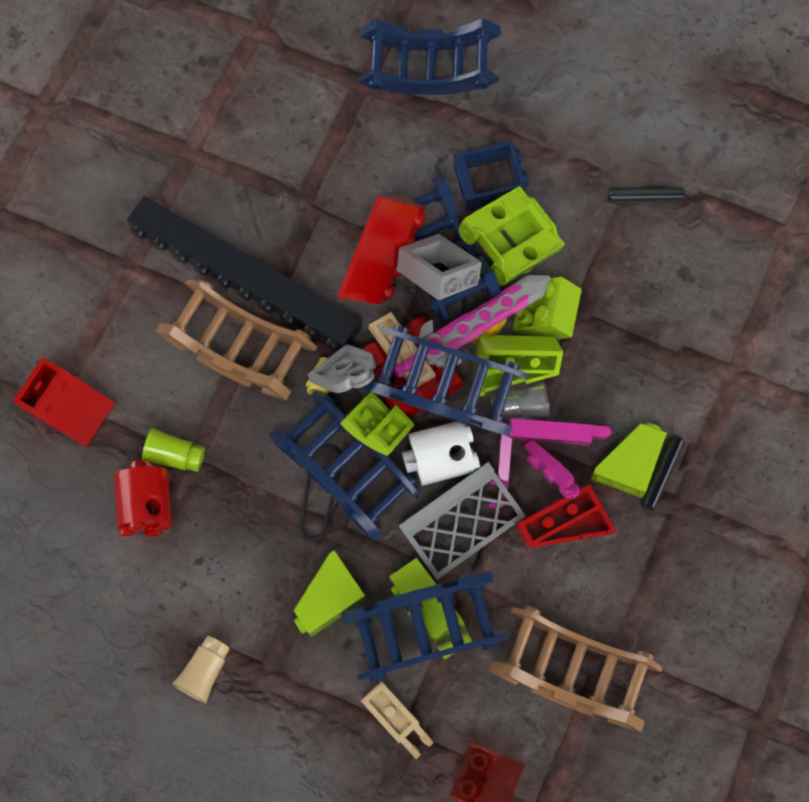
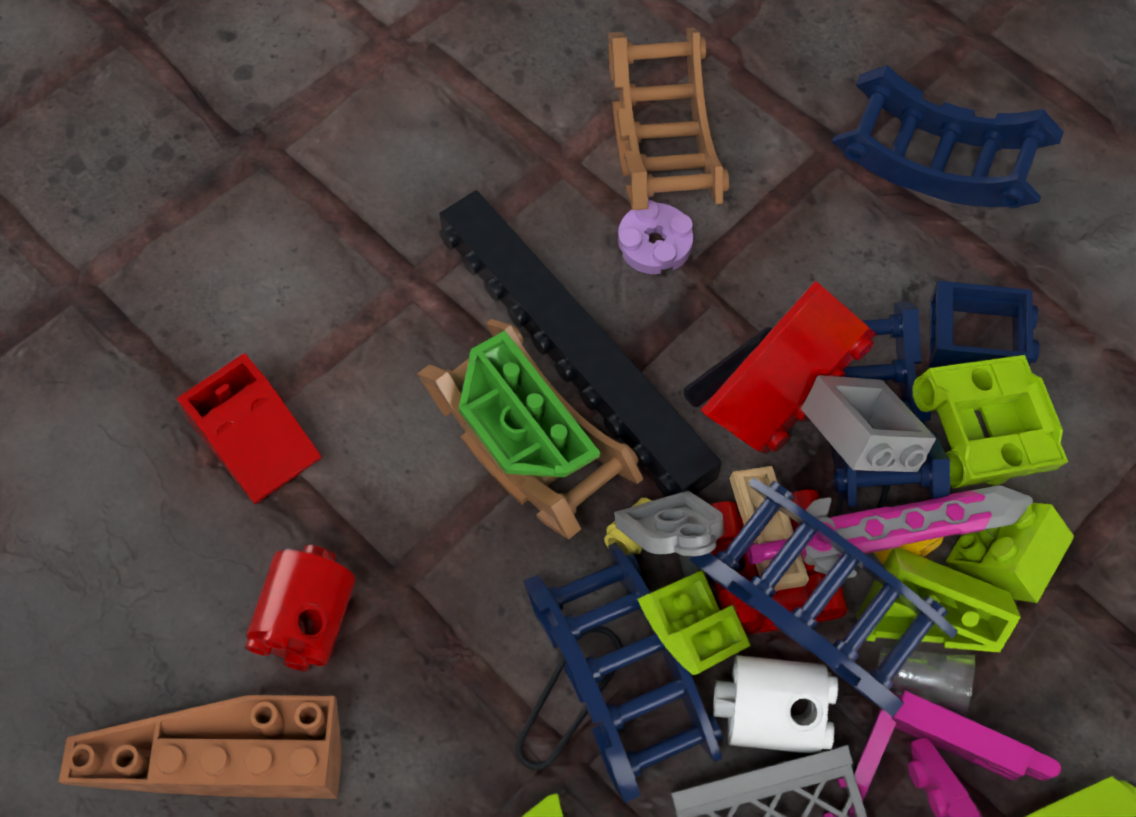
camera: 15 degrees right, 10 degrees down
(127, 599) = (218, 749): none -> nougat wedge
(172, 451) = (373, 554): lime plant -> none
(228, 118) = (631, 133): none -> medium nougat fence
(228, 335) = (520, 414): none -> bright green wedge
(277, 195) = (660, 219): none -> lavender plate
(344, 256) = (712, 380): none -> black axle

